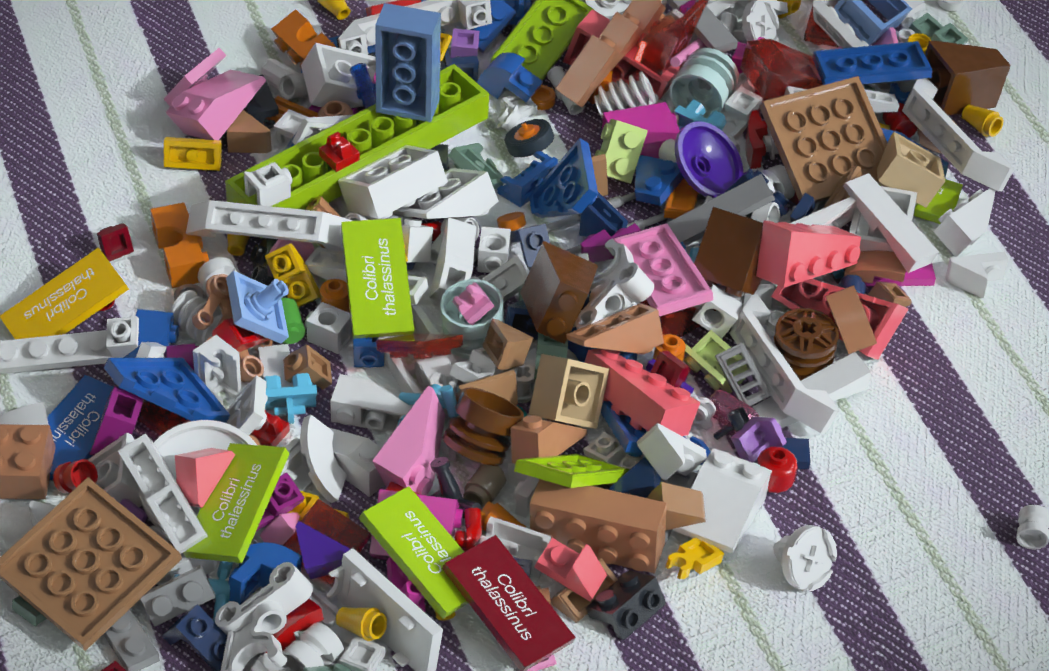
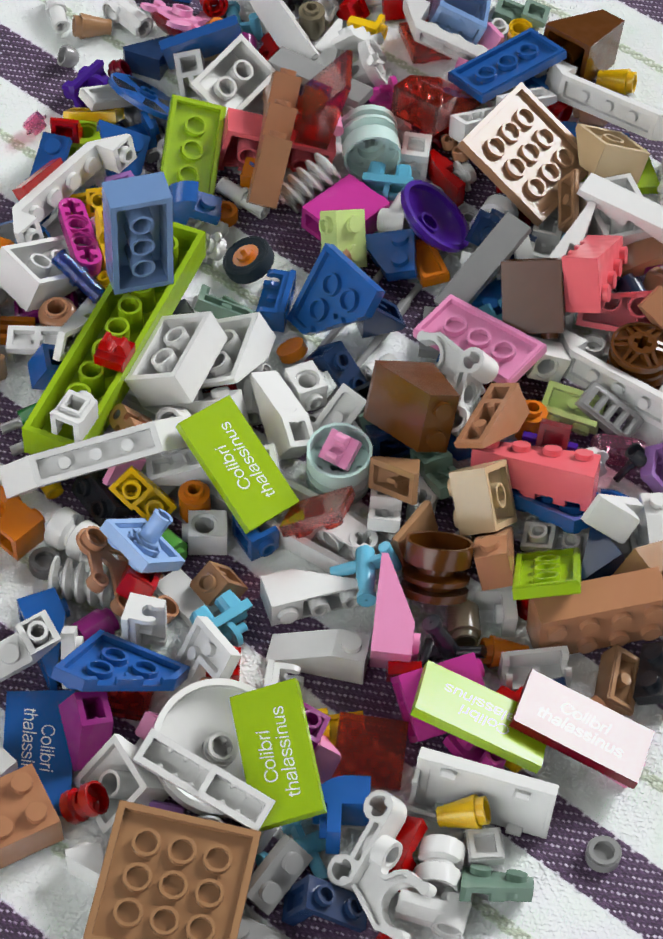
camera: 30 degrees left, 5 degrees up
(200, 472) = (225, 739): coral slope -> none
(319, 551) = (381, 762): dark purple slope -> none
(323, 466) = (299, 661): white tile -> none
(473, 529) = (496, 672): red arm -> none
(575, 571) = (604, 668): coral slope -> none
(595, 243) = (400, 336): magenta slope -> none
(804, 208) = (549, 231): dark blue tile -> none

